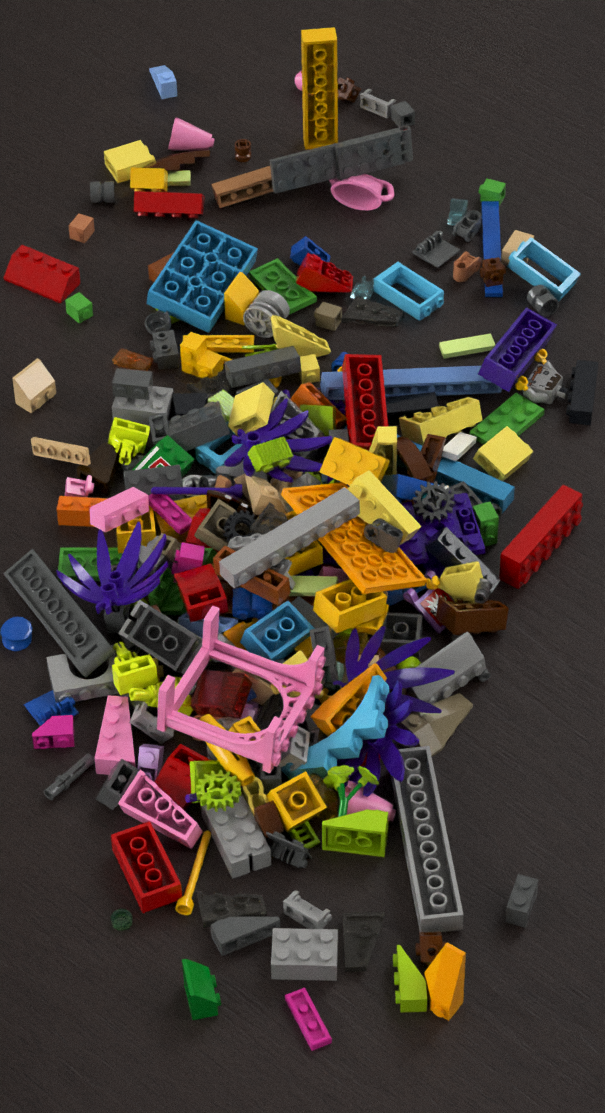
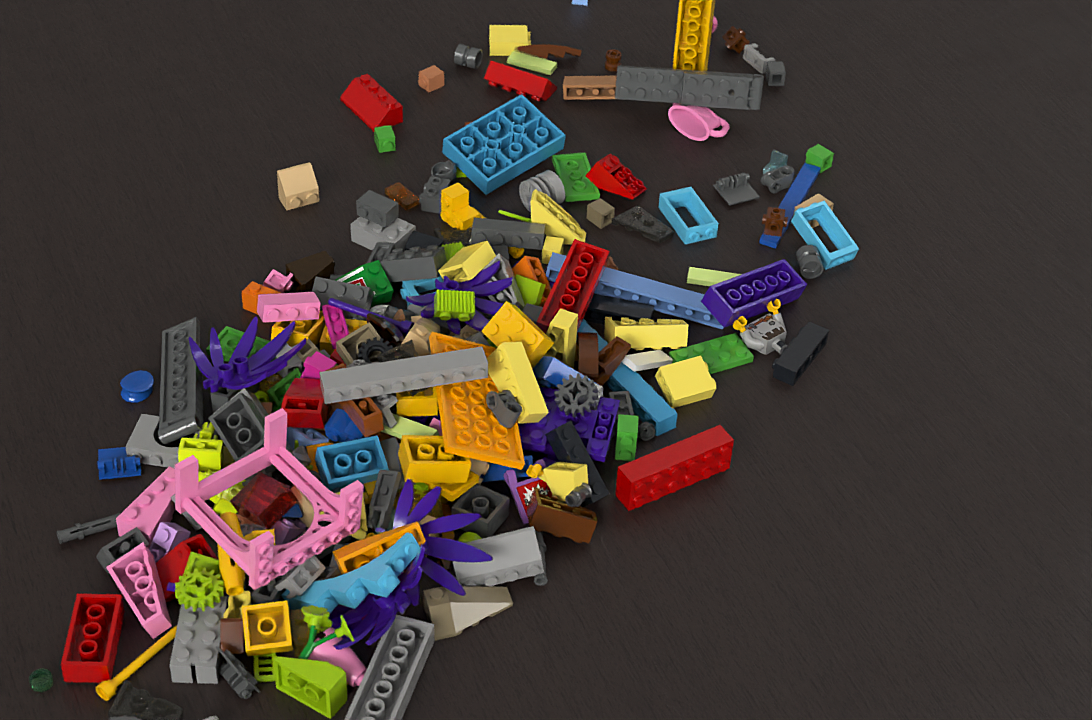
camera: 20 degrees right, 5 degrees down
(55, 733) = (104, 484): dark pink slope -> none
(60, 451) = (283, 246): tan bracket -> none
(128, 437) = (346, 254): neon yellow brick -> none
(149, 179) = (511, 55): yellow brick -> none
(189, 137) = (571, 35): bright pink cone -> none
(228, 343) = (492, 206): yellow plate -> none
(238, 298) = (525, 167): yellow slope -> none
(305, 246) = (617, 150): blue slope -> none
(363, 290) = (647, 202): clear light blue plate -> none
(465, 267) = (753, 211): nougat piece -> none

